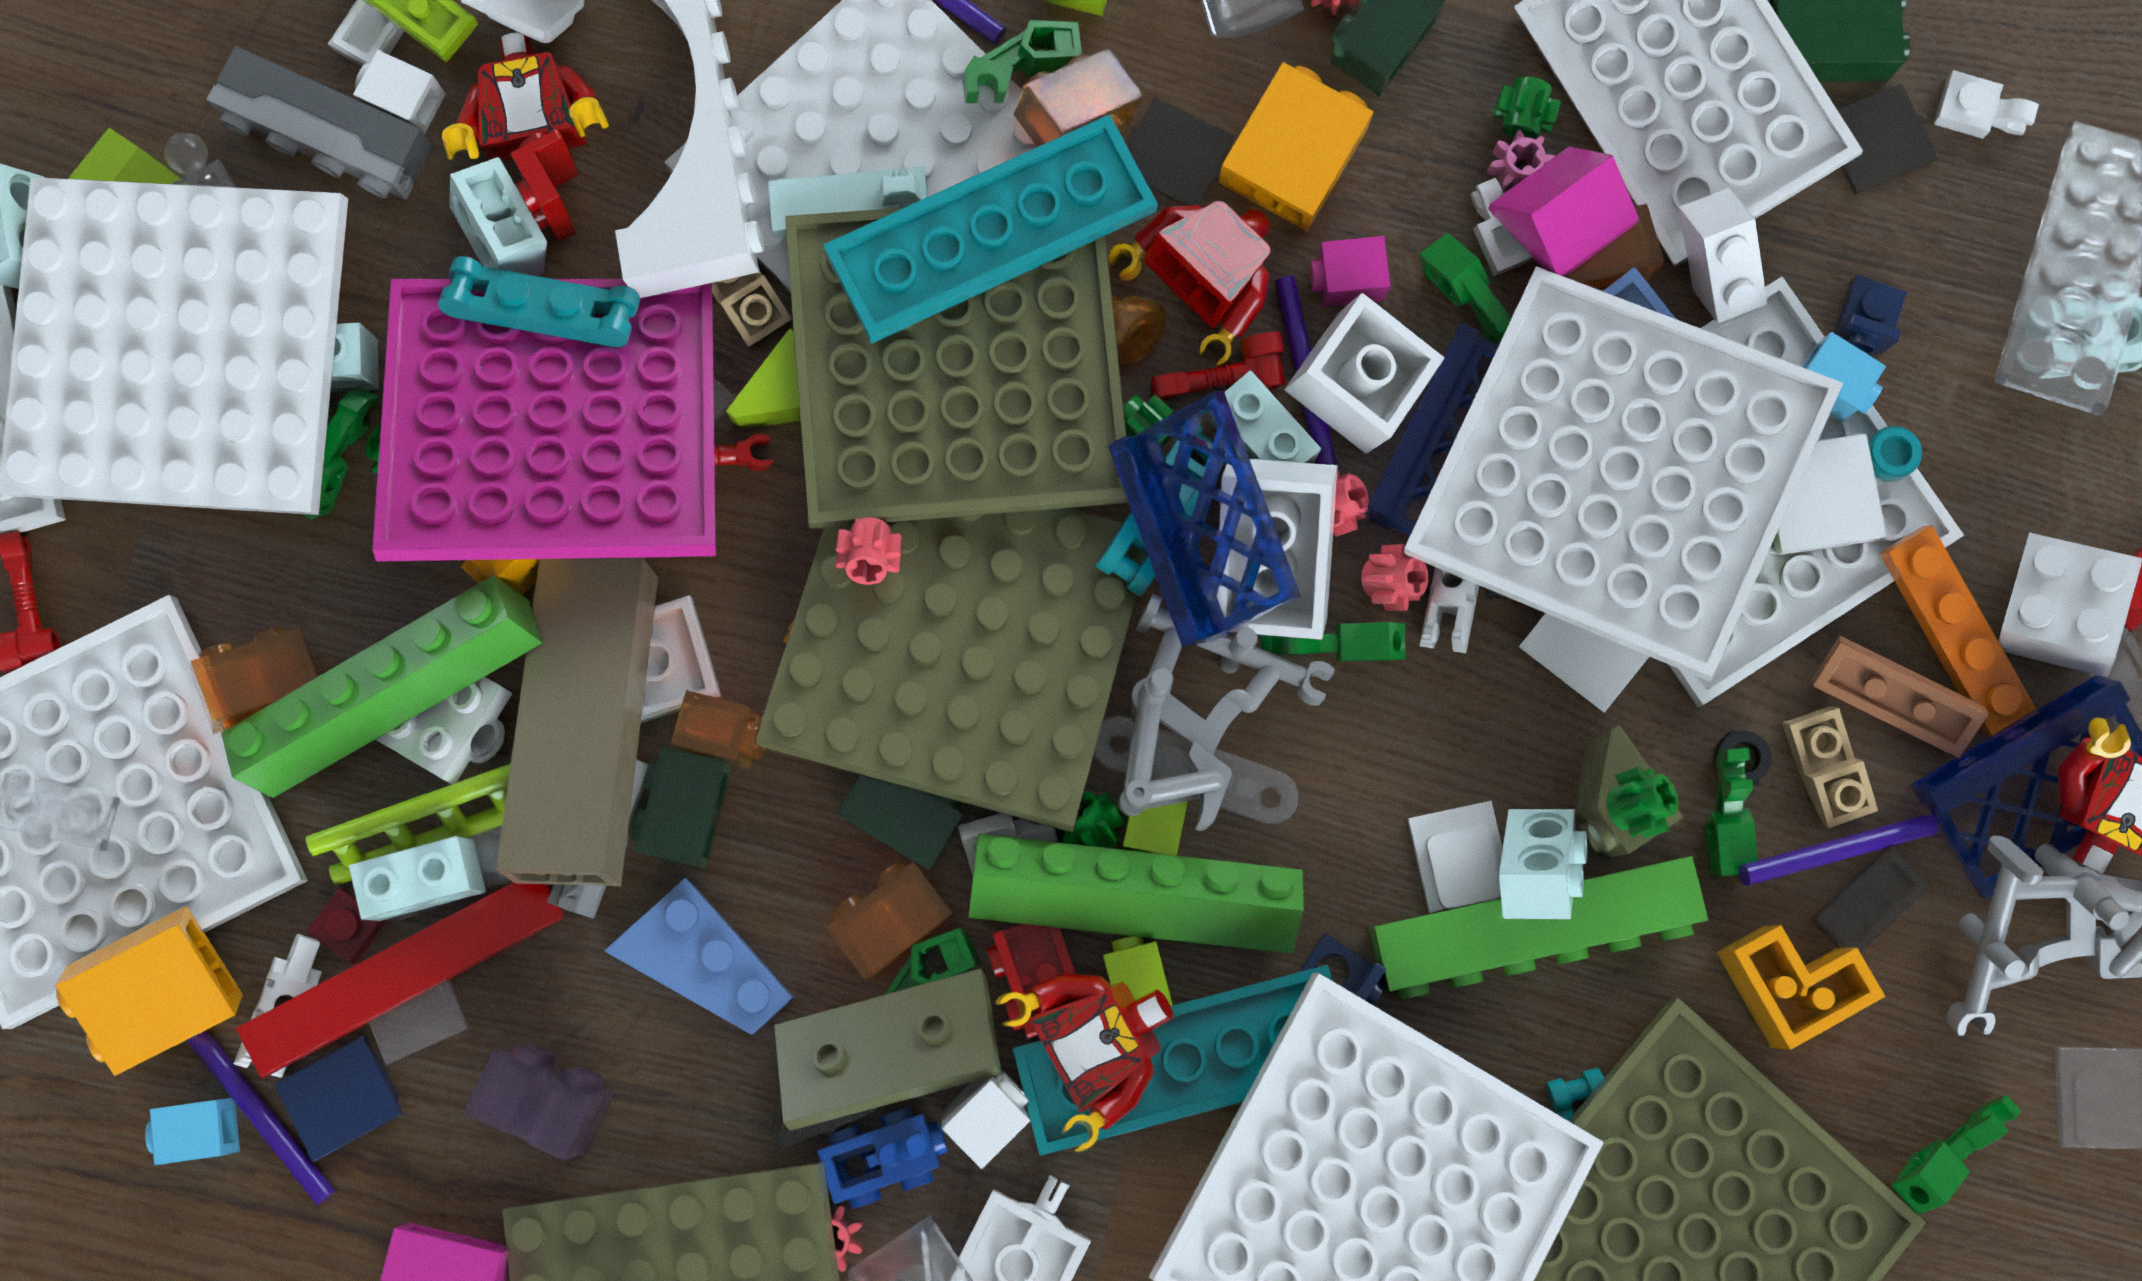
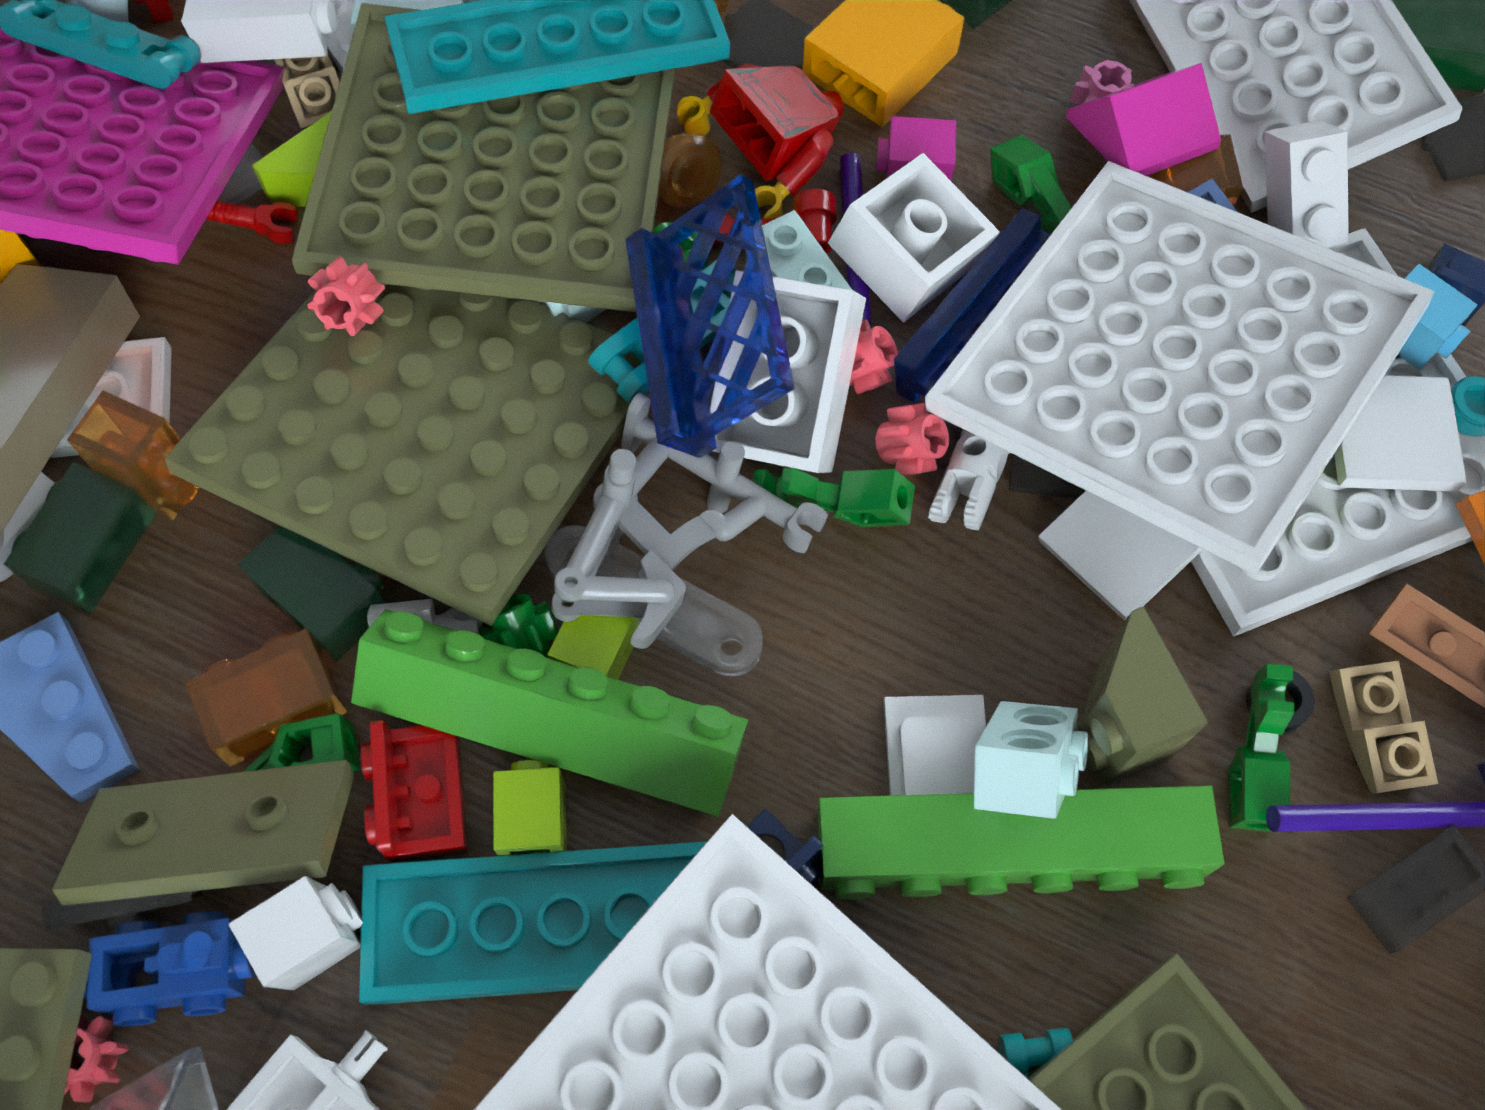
camera: 10 degrees right, 15 degrees down
(1096, 1042) = (452, 865): torso -> none
(1497, 243) = (1072, 153): white plate -> none
(1526, 107) = (1118, 41): green gear -> none
(1642, 802) = (1160, 684): green gear -> none
(1793, 998) = (1311, 974): light orange brick -> none

